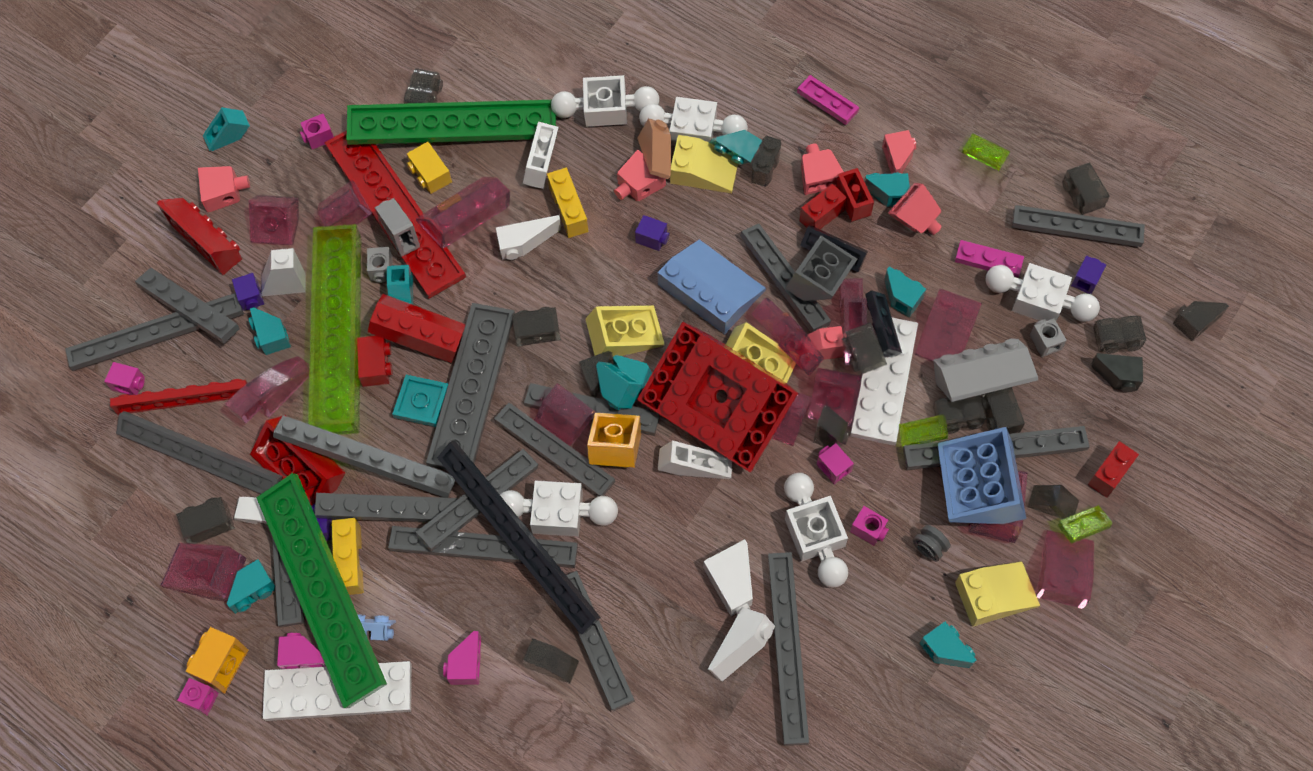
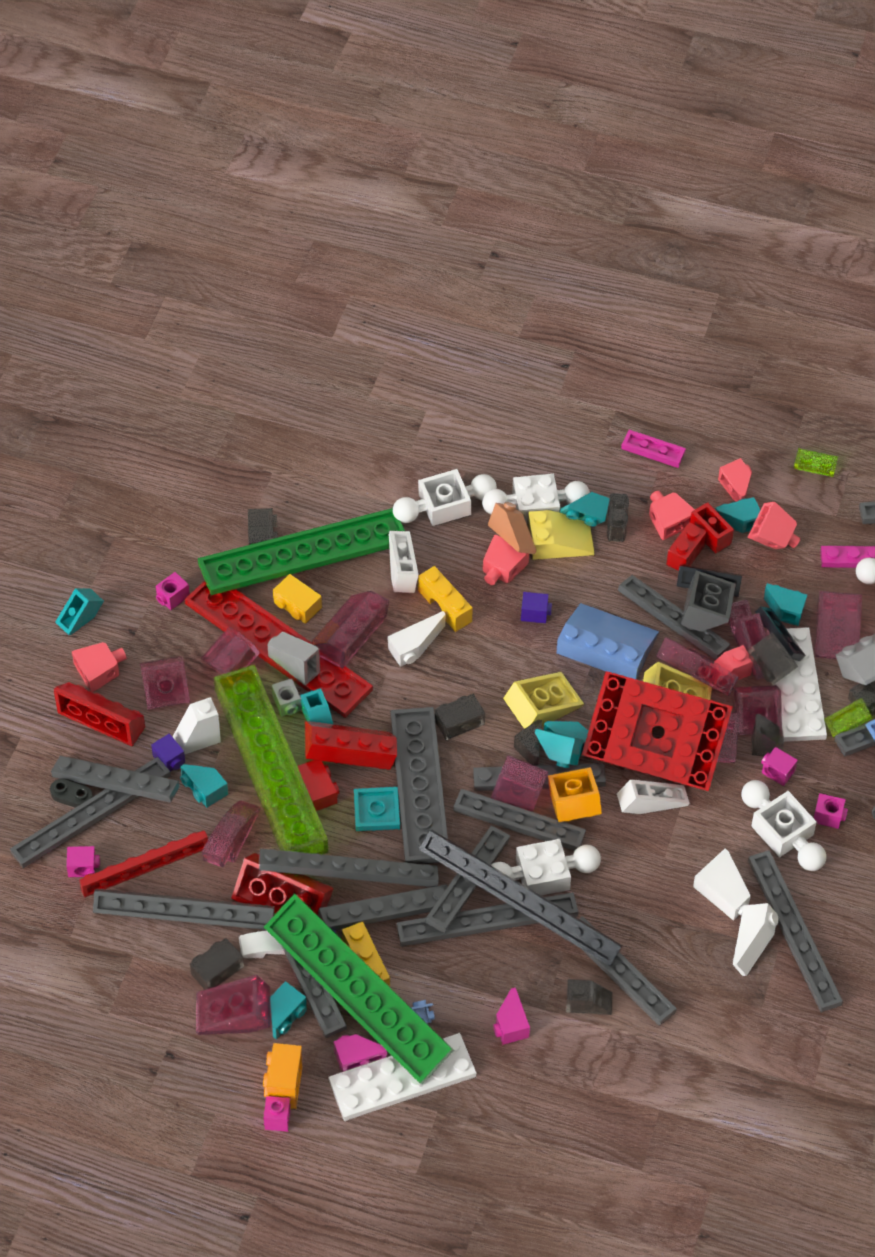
camera: 20 degrees left, 10 degrees down
(145, 306) = (70, 793): none -> pearl dark grey plate

